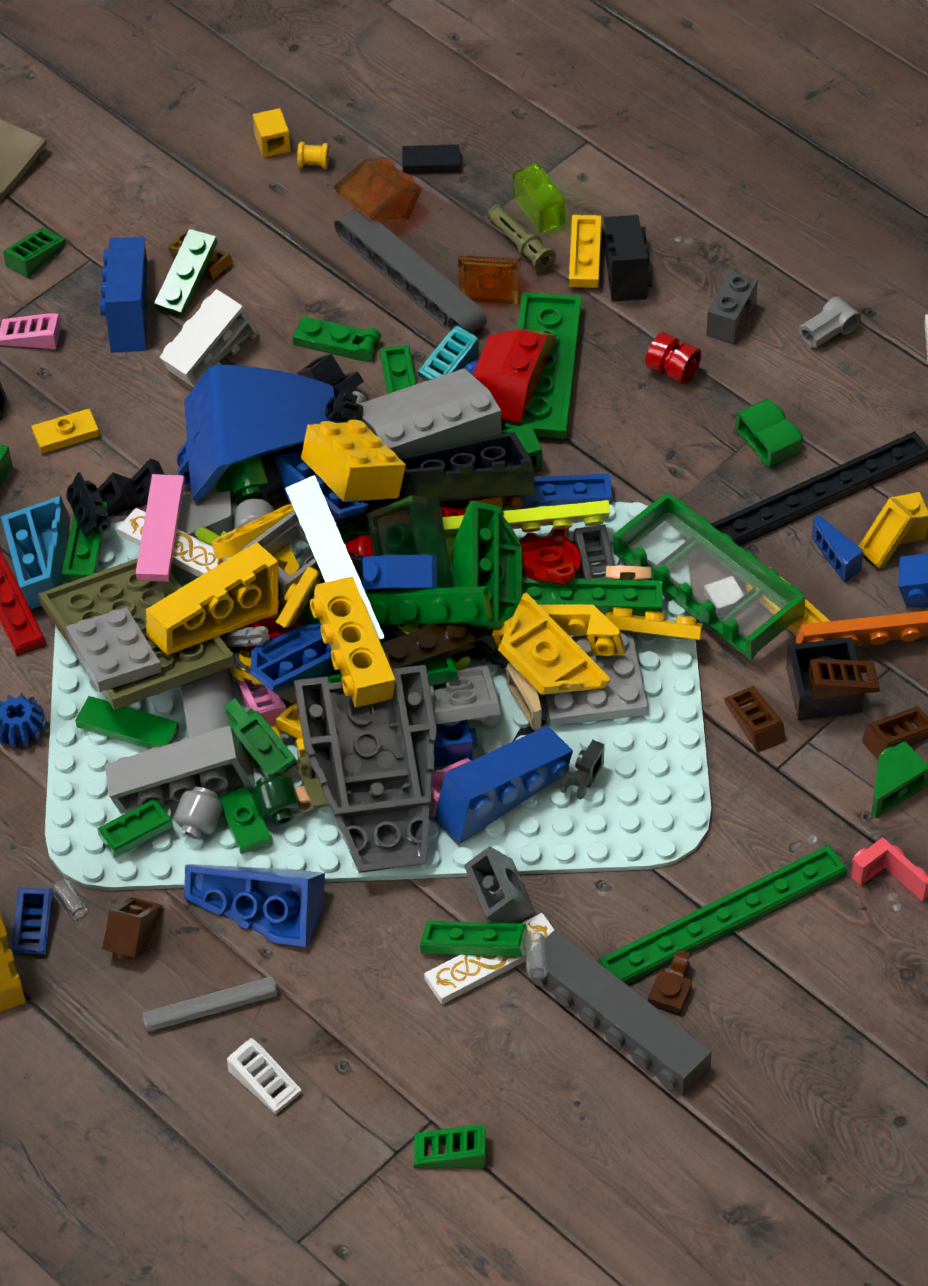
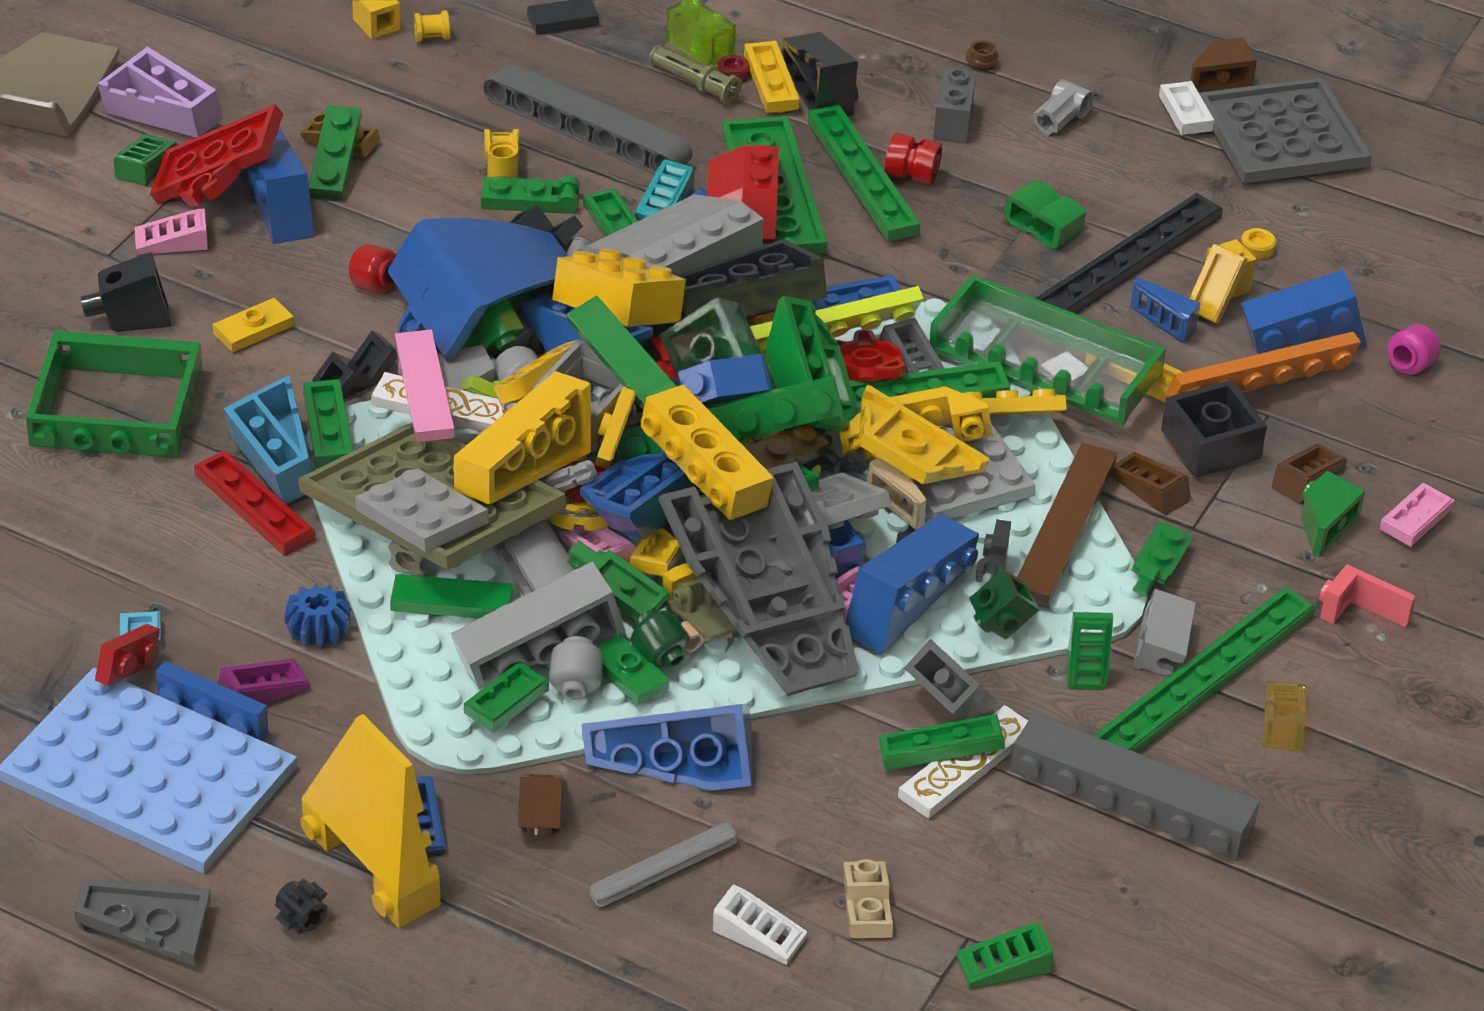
camera: 20 degrees left, 10 degrees down
(61, 194) = (160, 95): none -> lavender wedge
(70, 899) = (454, 787): clear piece -> none
(76, 267) = (215, 158): none -> red plate
(87, 506) = (321, 383): black hinge -> none
(173, 391) = (370, 269): none -> red head
(208, 338) = (390, 204): white wedge -> none
(326, 296) = (502, 153): none -> yellow piece
(343, 408) = (582, 240): black gear -> none
(360, 1070) = (867, 899): none -> tan slope
(380, 190) = (526, 43): clear orange slope -> none
(490, 278) = (683, 108): clear orange slope -> none
(535, 955) = (1027, 739): clear piece -> none
(557, 236) = (734, 65): none -> dark red tile
(569, 821) = (1003, 604): none -> dark green brick
(626, 882) = (1090, 672): none -> green slope
(627, 363) = (863, 173): none -> green plate
(628, 572) = (960, 358): light nougat tile -> none
(659, 748) = (1066, 521): none -> reddish brown tile
(672, 988) = (1177, 749): reddish brown plate -> none
(703, 870) = (1164, 632): none -> light grey hinge
(730, 796) = (1160, 557): none -> green hinge
(769, 985) = (1284, 719): none -> clear yellow slope
(780, 256) = (982, 55): none -> reddish brown plate
(834, 688) = (1231, 416): reddish brown slope -> none

